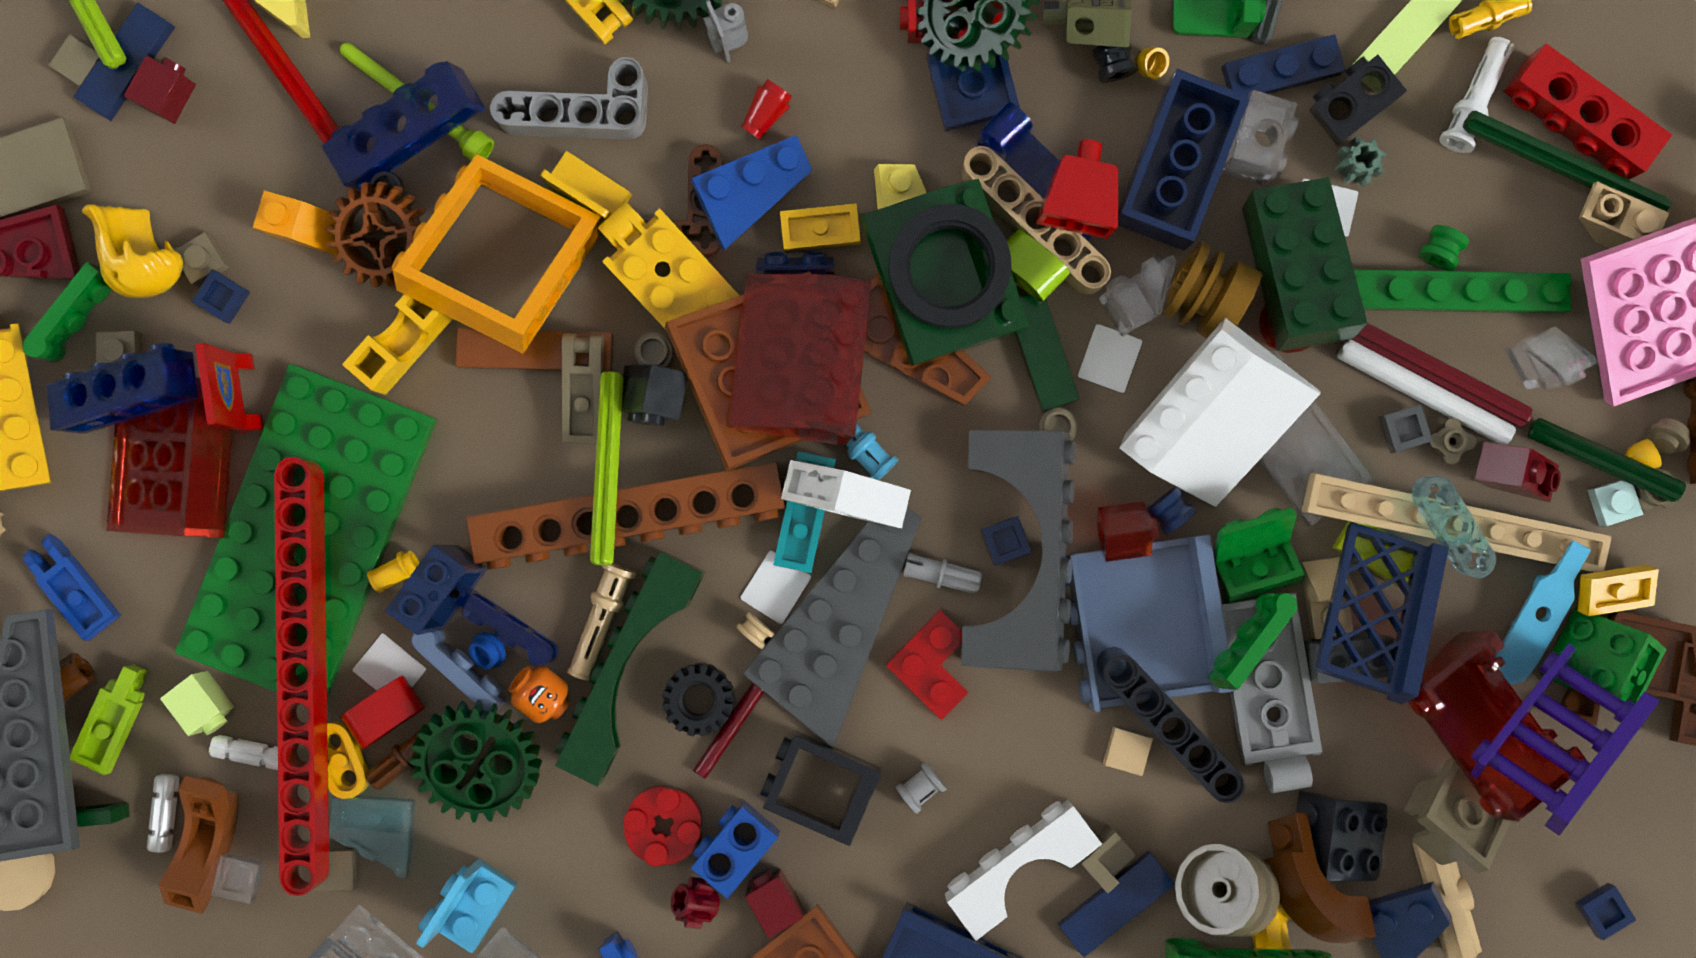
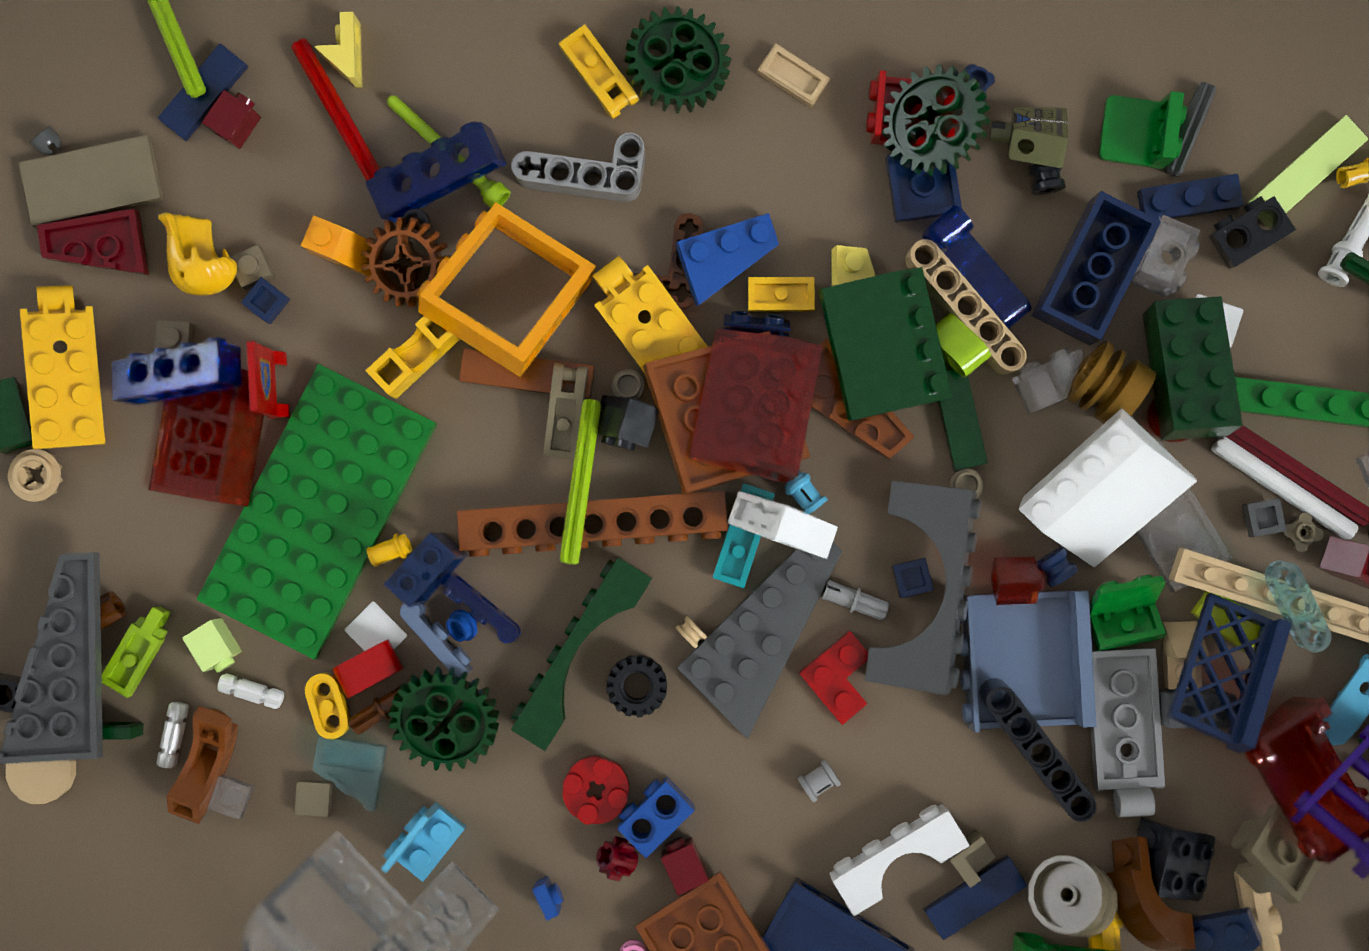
camera: 10 degrees right, 0 degrees up
(66, 315) = (134, 302): green plate -> none
(71, 589) = (114, 537): blue hinge -> none
(74, 60) = (161, 87): dark tan tile -> none
(292, 692) = (295, 644): red beam -> none
(539, 694) = (502, 667): orange head -> none
(582, 664) = (565, 591): tan pin -> none
(586, 186) = (585, 239): yellow panel -> none
(726, 28) = (719, 116): light grey hinge -> none
(728, 731) = (659, 715): dark red piece -> none
(766, 108) = (745, 187): red cone -> none
(775, 589) = (710, 598): white sticker -> none
(857, 804) = (762, 790): black window -> none
(958, 218) = (930, 324): black tyre -> none
(1082, 194) = (1009, 289): red torso -> none
(1110, 358) = (1016, 431): white sticker -> none
(1127, 751) = (998, 768): tan tile -> none
(1152, 62) = (1079, 182): yellow hinge -> none
(1253, 640) = (1116, 685): green plate -> none
(1362, 152) = (1248, 276): sand green gear -> none
(1444, 247) = (1313, 366): green wheel -> none

